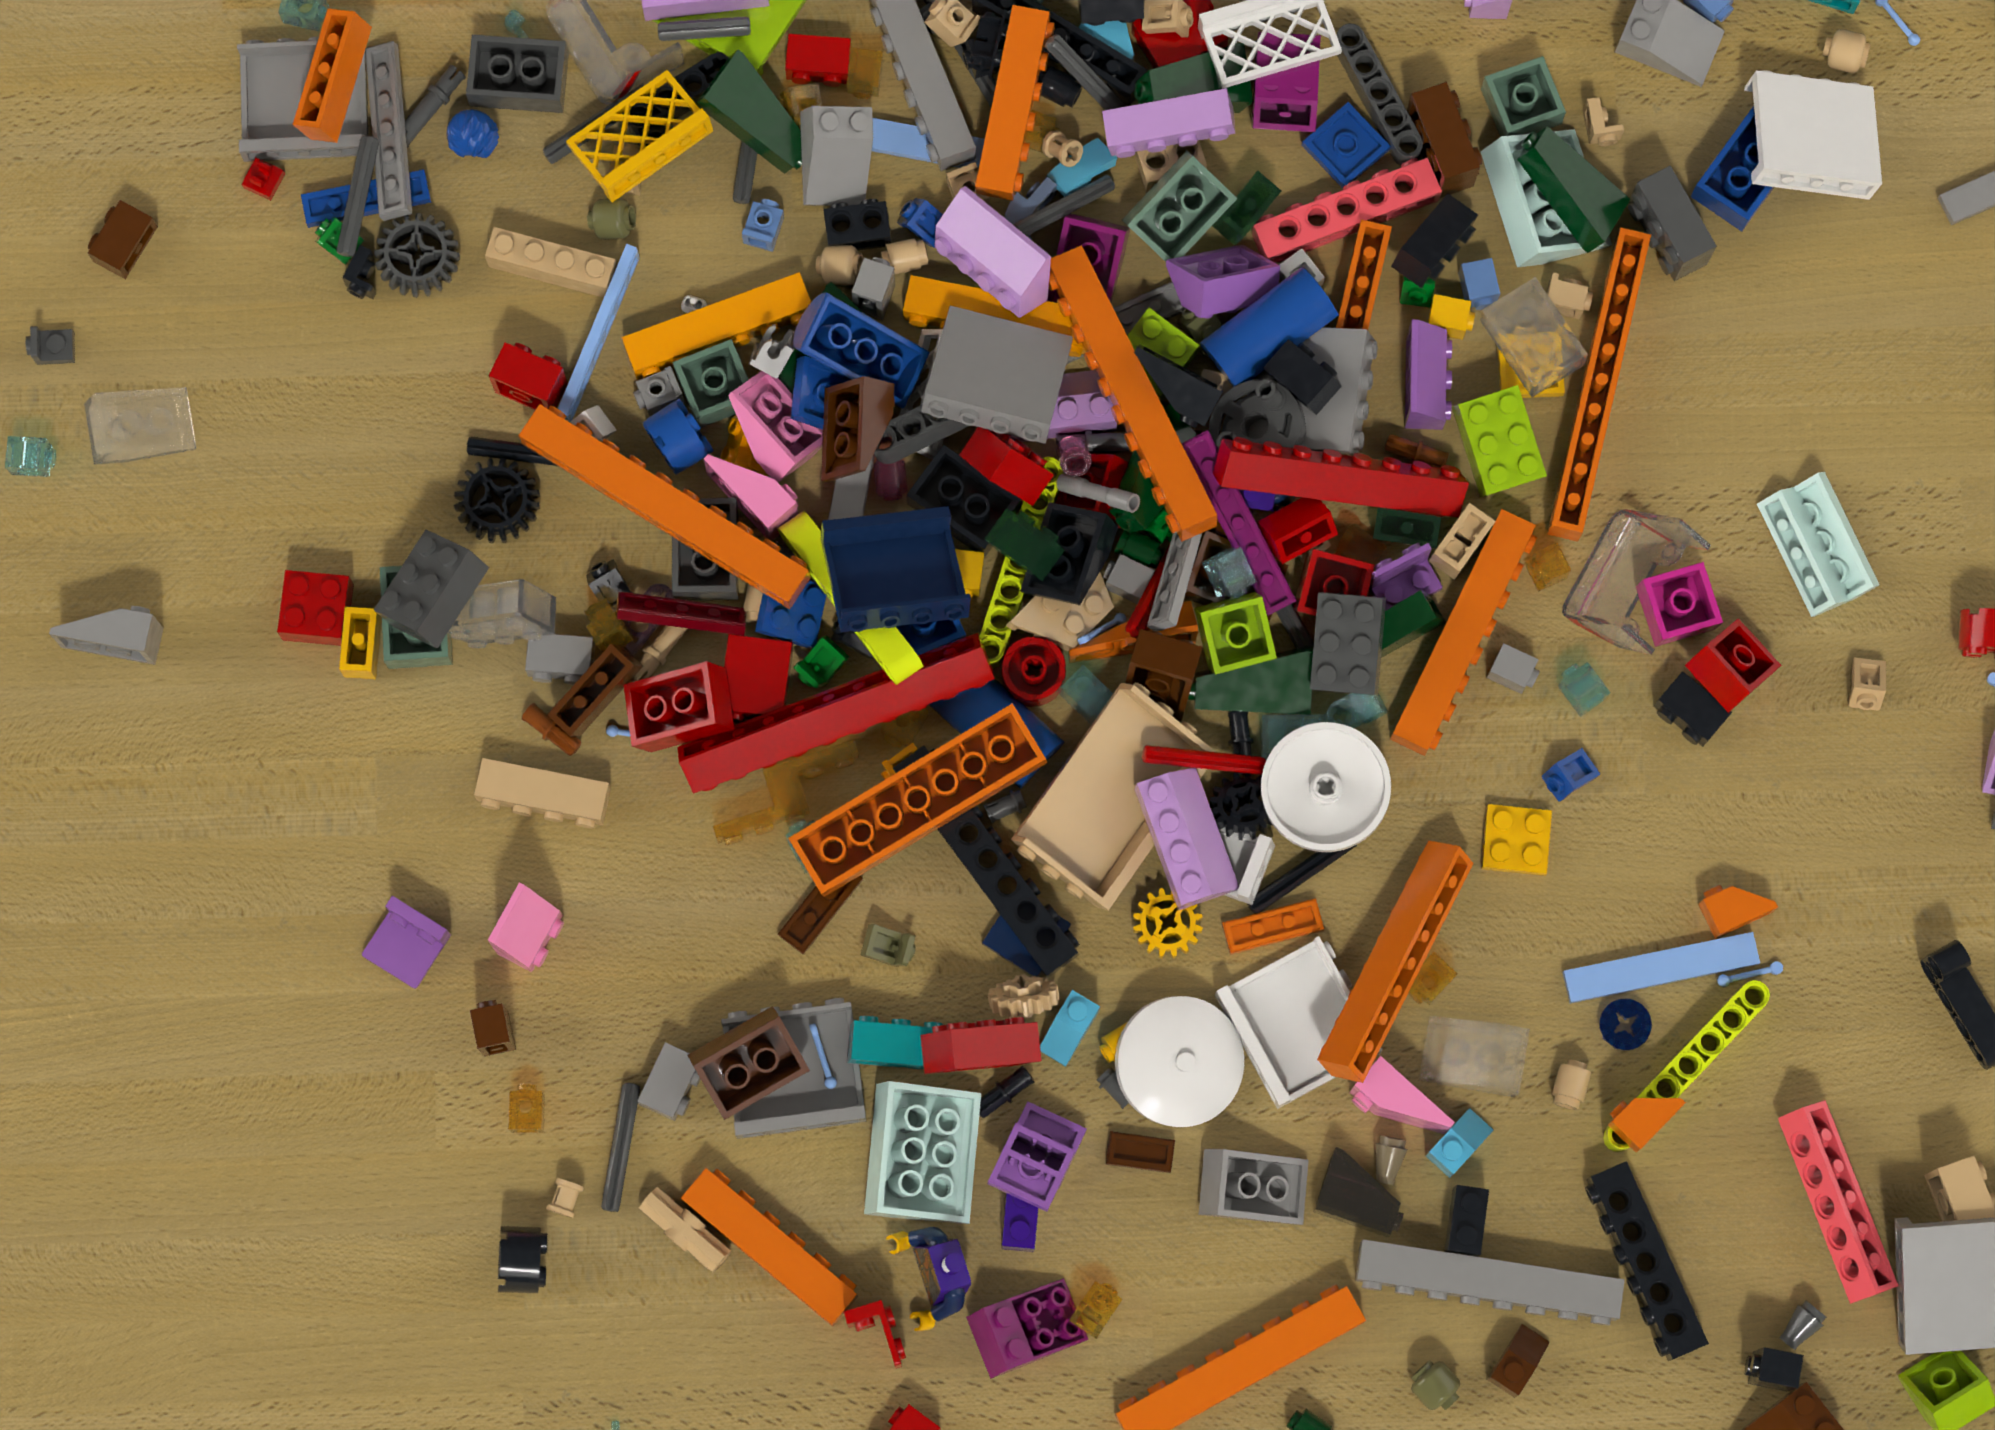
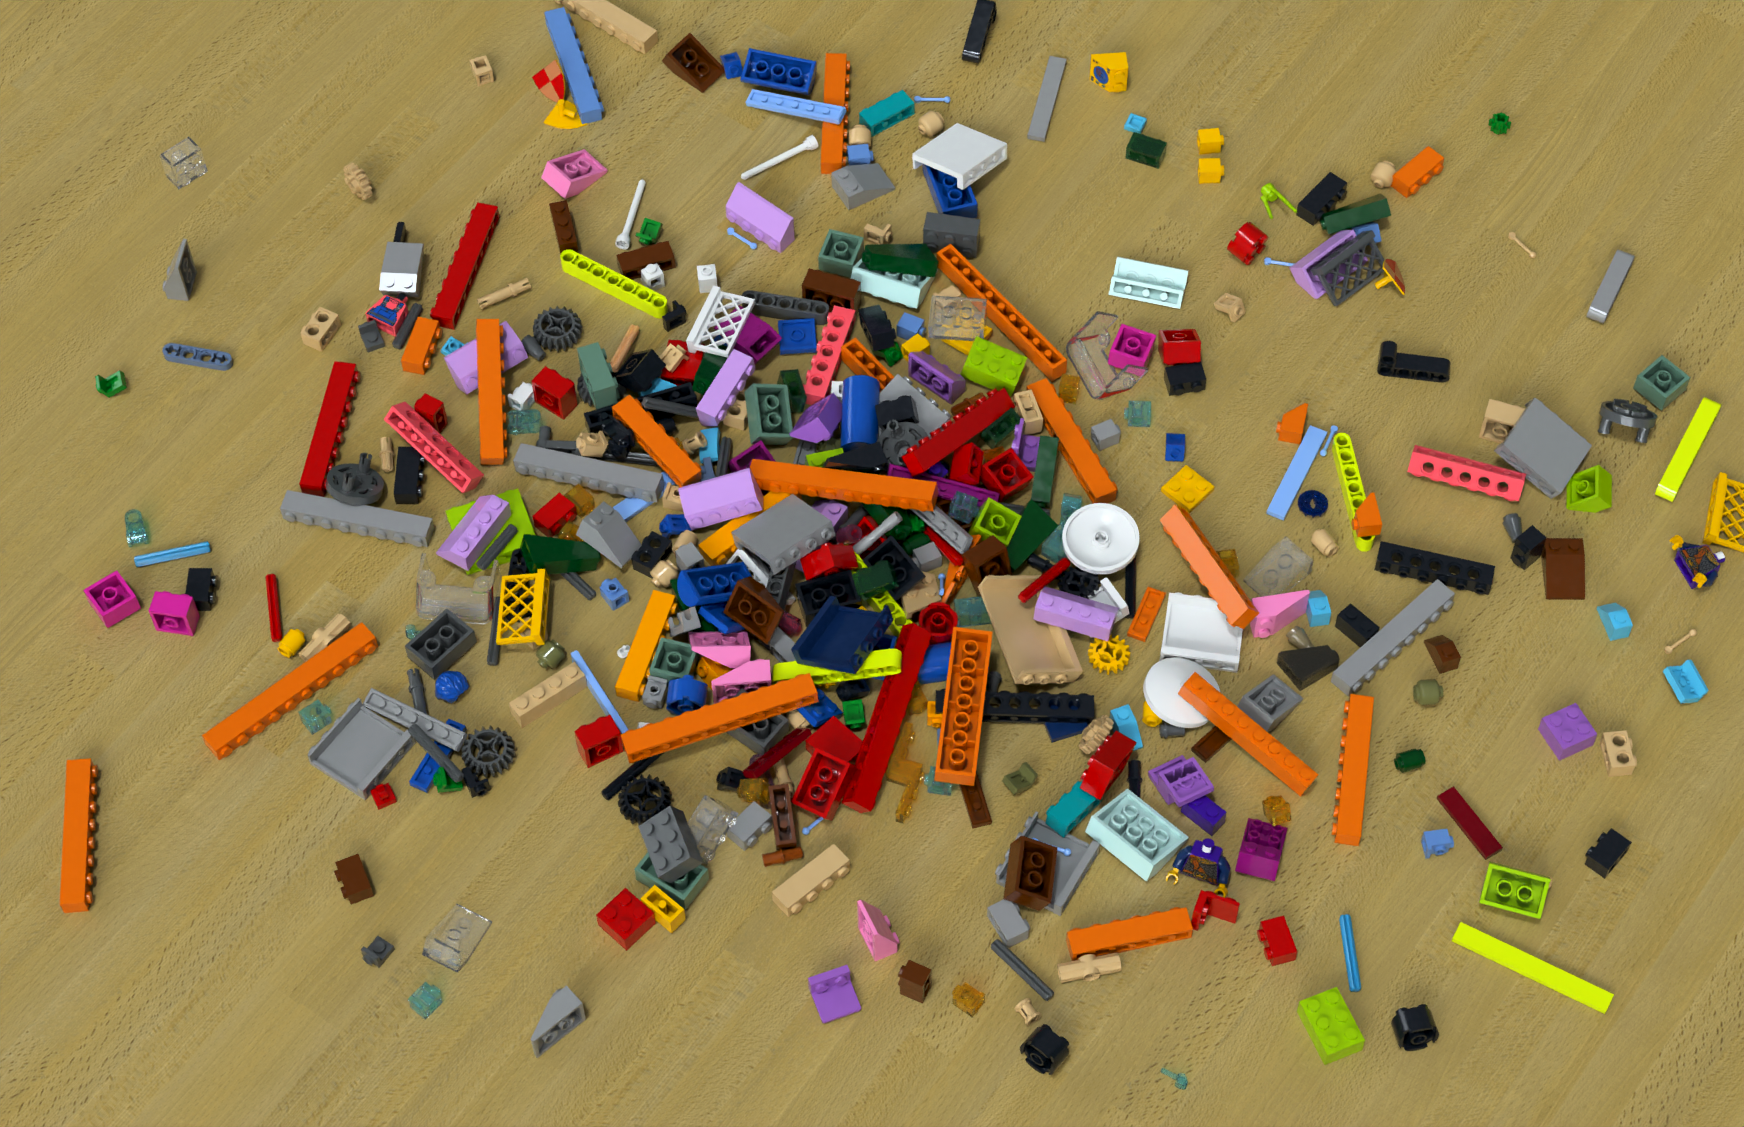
camera: 50 degrees left, 20 degrees down
(332, 75) = (367, 717): orange brick -> none
(1172, 1195) = (1247, 734): none -> orange brick
(1348, 643) = (1040, 480): dark grey brick -> none

